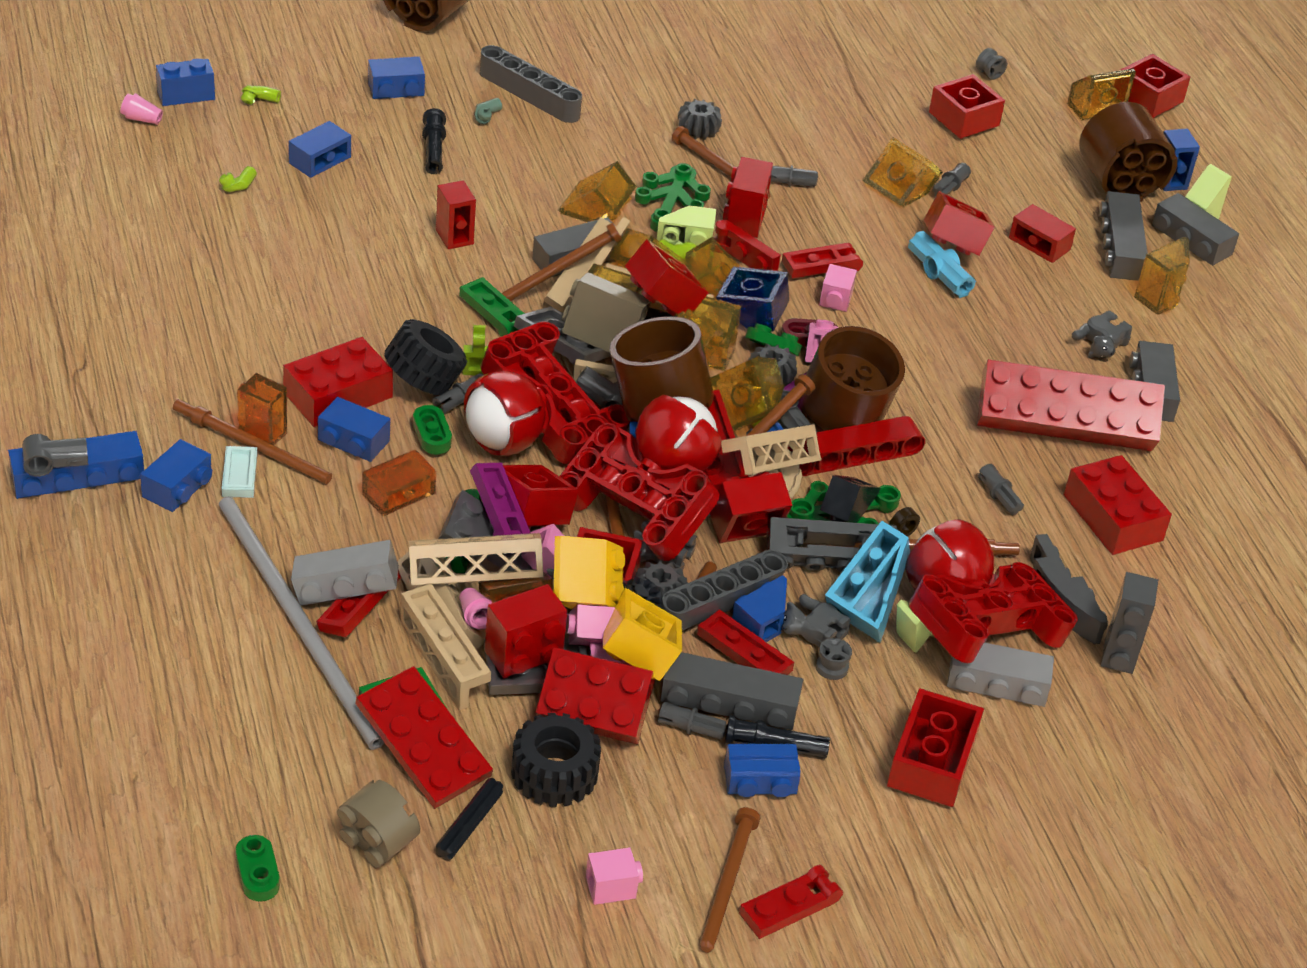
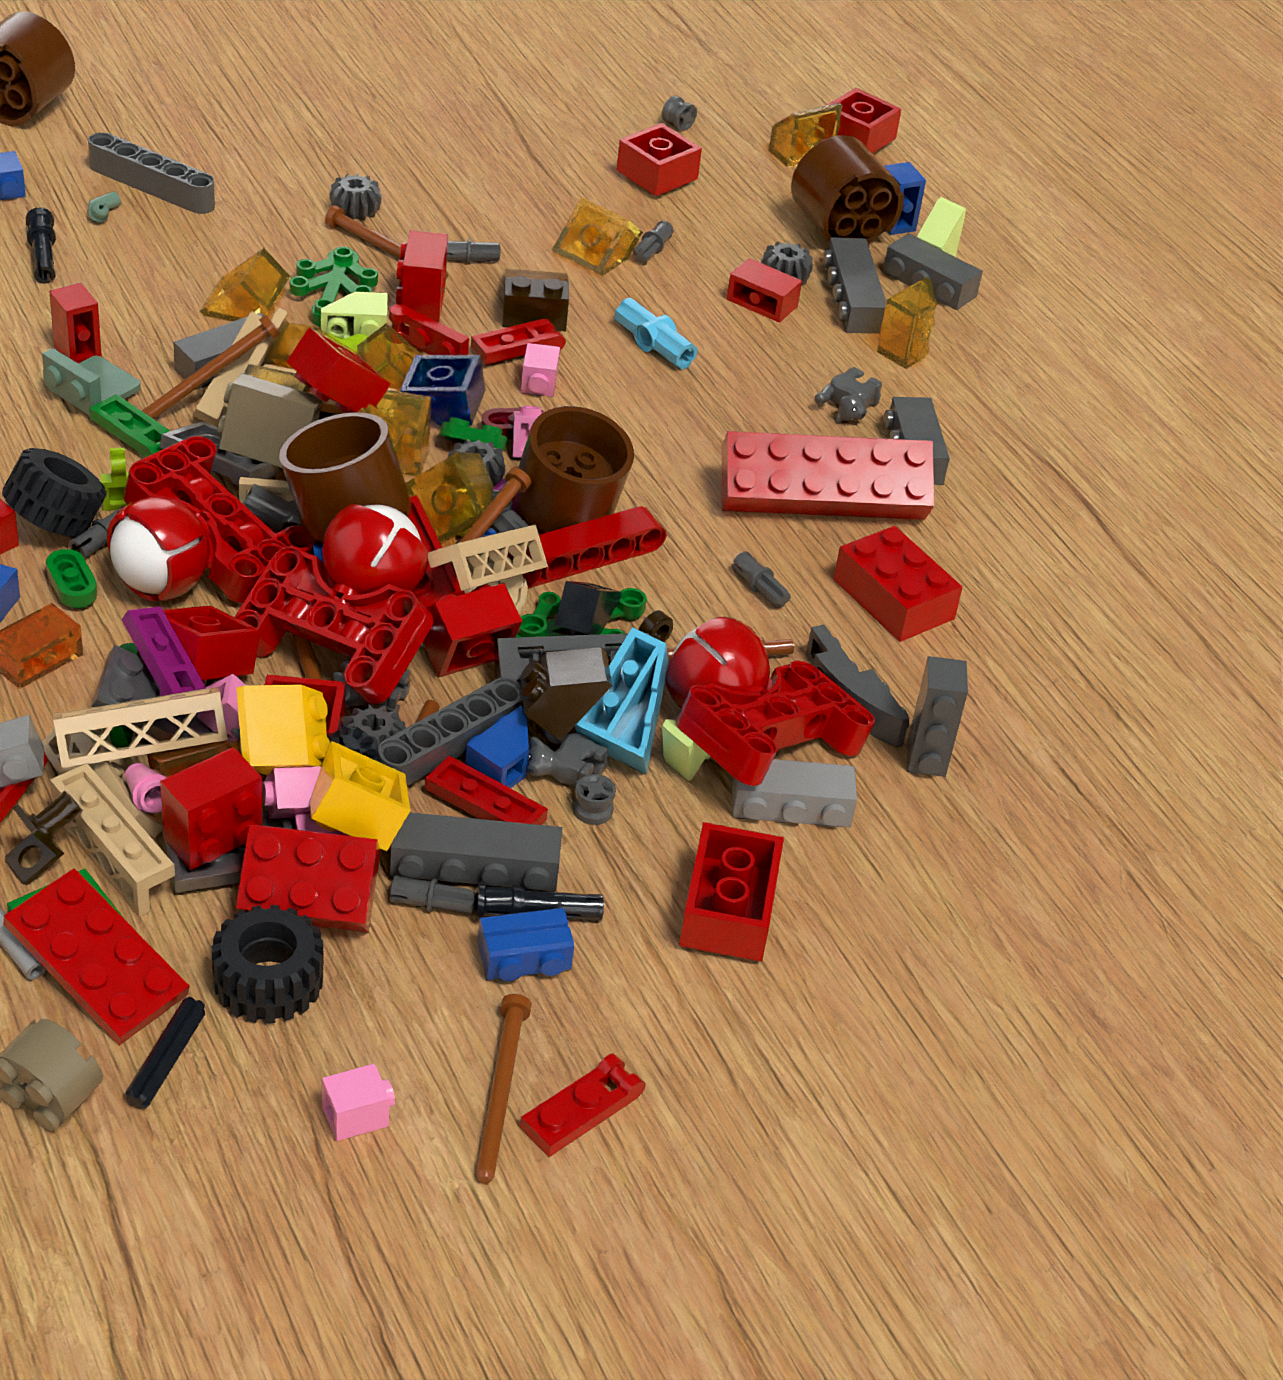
camera: 10 degrees left, 0 degrees up
(391, 635) = (42, 836): none -> dark brown bracket
(461, 263) = (86, 382): none -> sand green bracket
(820, 564) = (564, 687): none -> dark brown slope
(842, 221) = (535, 297): none -> dark brown slope
(959, 224) = (670, 286): brick -> none
(1068, 208) = (789, 260): none -> dark grey gear

